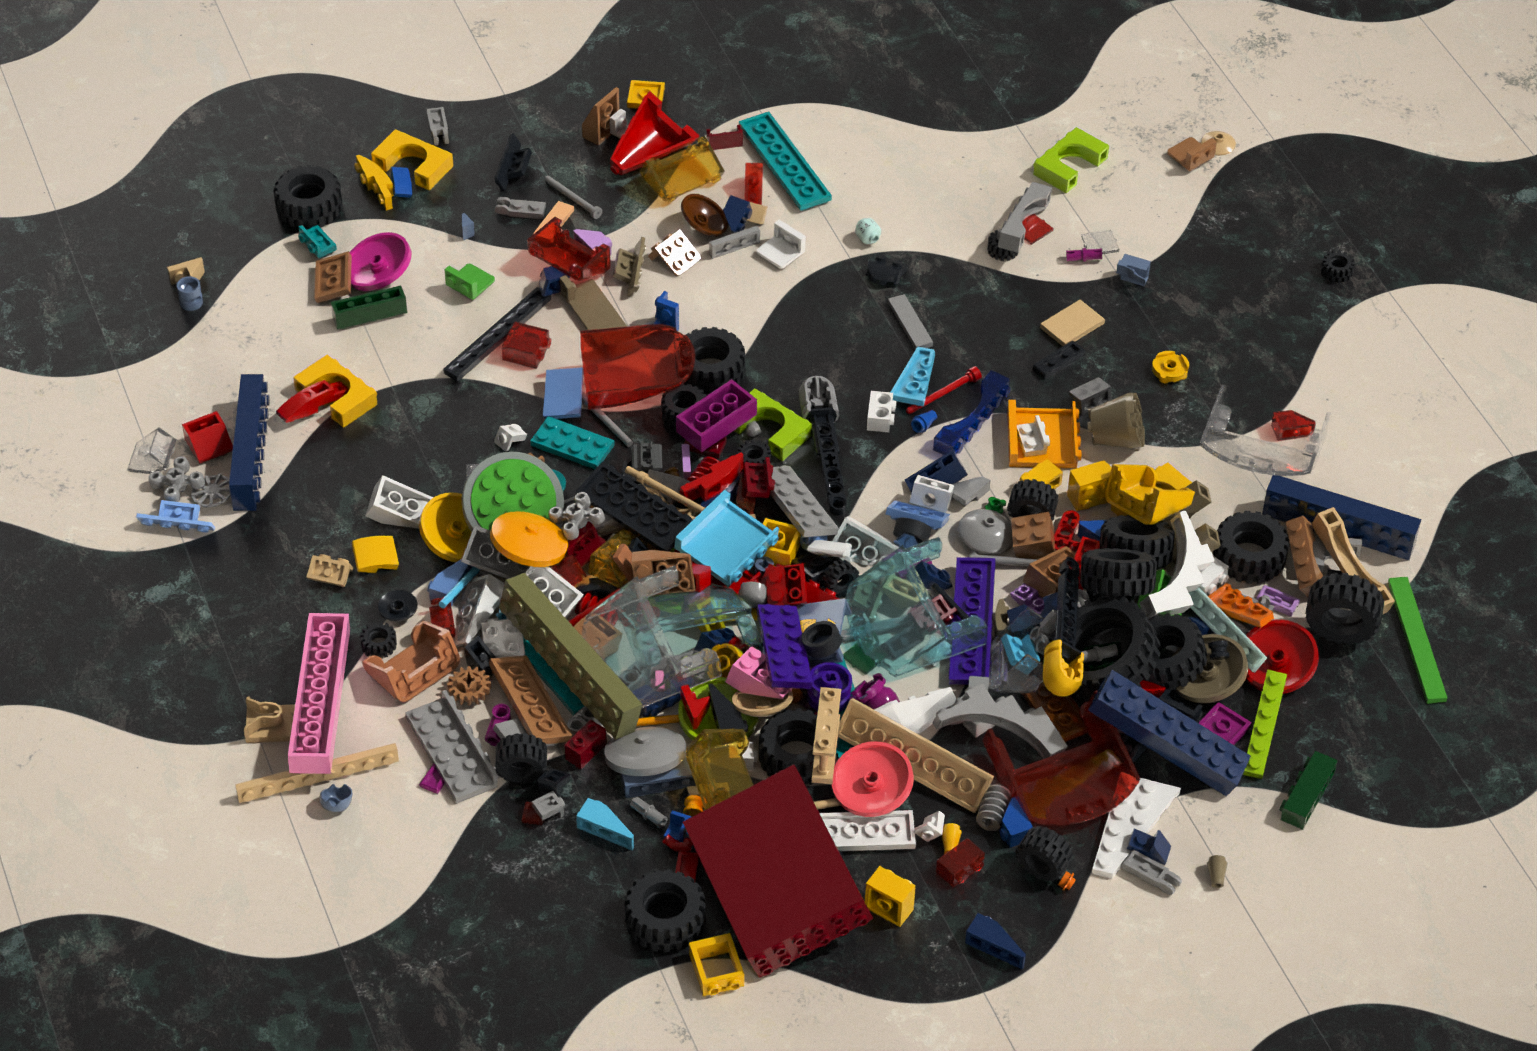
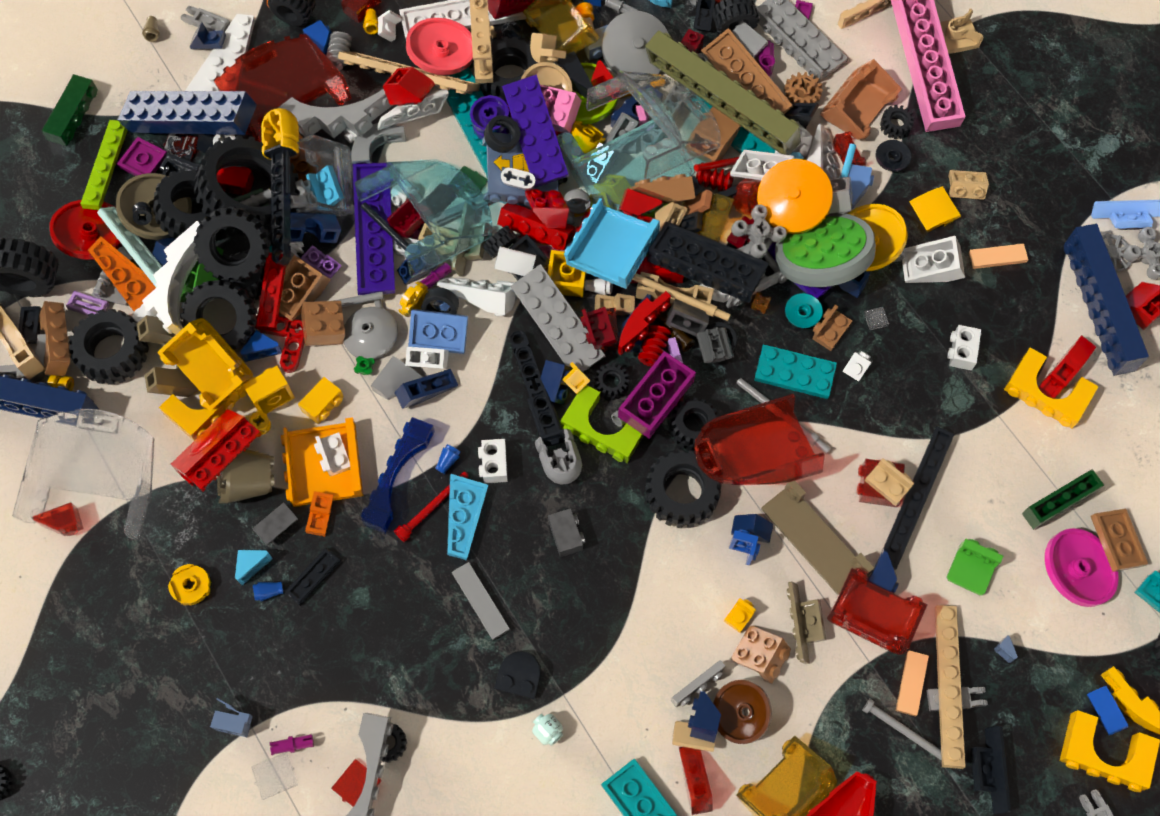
camera: 170 degrees right, 20 degrees up
(329, 506) = (998, 256): none -> light nougat tile
(401, 432) = (967, 348): none -> white brick
(522, 330) = (889, 481): none -> tan bracket
(525, 209) = (949, 687): none -> tan plate
(563, 393) = (822, 423): medium blue tile -> none
(591, 238) = (856, 648): lavender slope -> none
(684, 281) = (740, 614): none -> yellow bracket
(755, 730) = (543, 48): none -> tan brick
(783, 246) = (643, 685): white bracket -> none
(787, 452) = (576, 379): none -> yellow panel
(807, 460) = (552, 381): none -> dark blue slope
(812, 604) = (519, 174): none -> white beam
(824, 352) = (565, 532): none -> flat silver brick
(874, 692) = (450, 118): magenta tile -> none
(916, 710) = (407, 86): none -> red slope
(944, 532) = (413, 298): none -> yellow plate
(1000, 617) = (347, 232): dark tan slope -> none
(1032, 498) = (324, 353): black tyre -> none
(1049, 397) = (319, 513): none -> orange slope
(1072, 323) = (300, 633): tan tile -> none
(1100, 352) = (266, 590): none -> blue cone
(1113, 371) = (249, 563): none -> medium azure slope
(1145, 426) = (215, 449): none -> red panel

